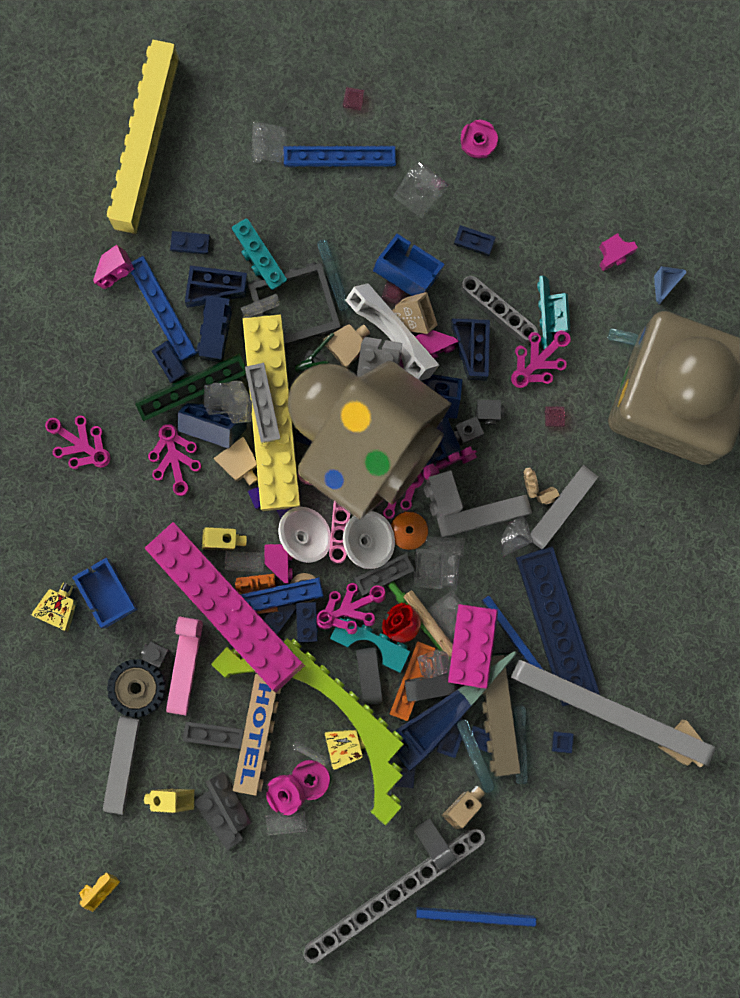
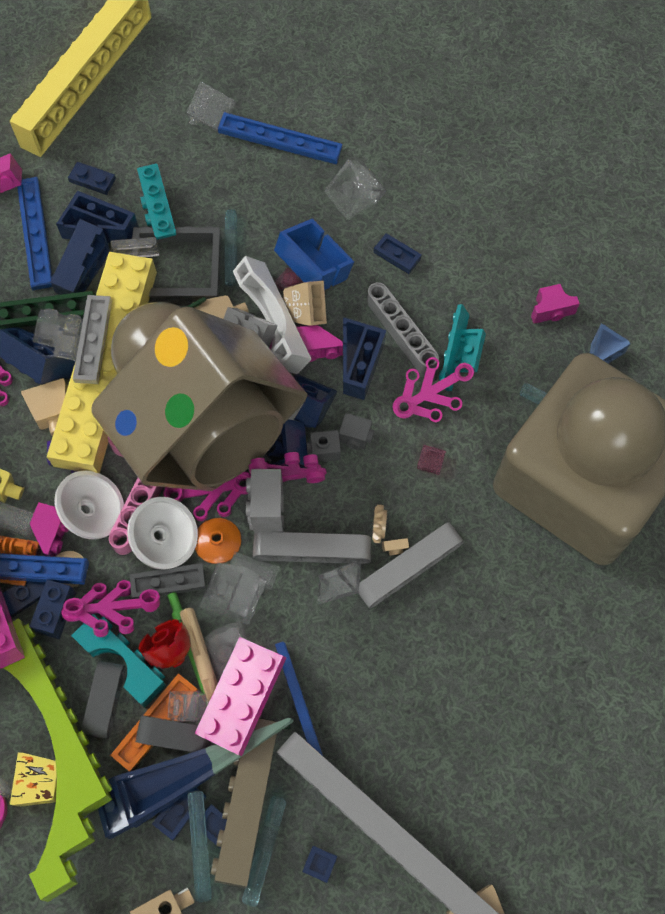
camera: 20 degrees right, 15 degrees down
(169, 362) = (18, 281): dark blue plate -> none
(353, 98) = (314, 91): clear pink plate -> none
(407, 779) = (102, 848): dark blue plate -> none
(481, 149) = (430, 169): dark pink plate -> none
(555, 618) = (360, 700): dark blue plate -> none

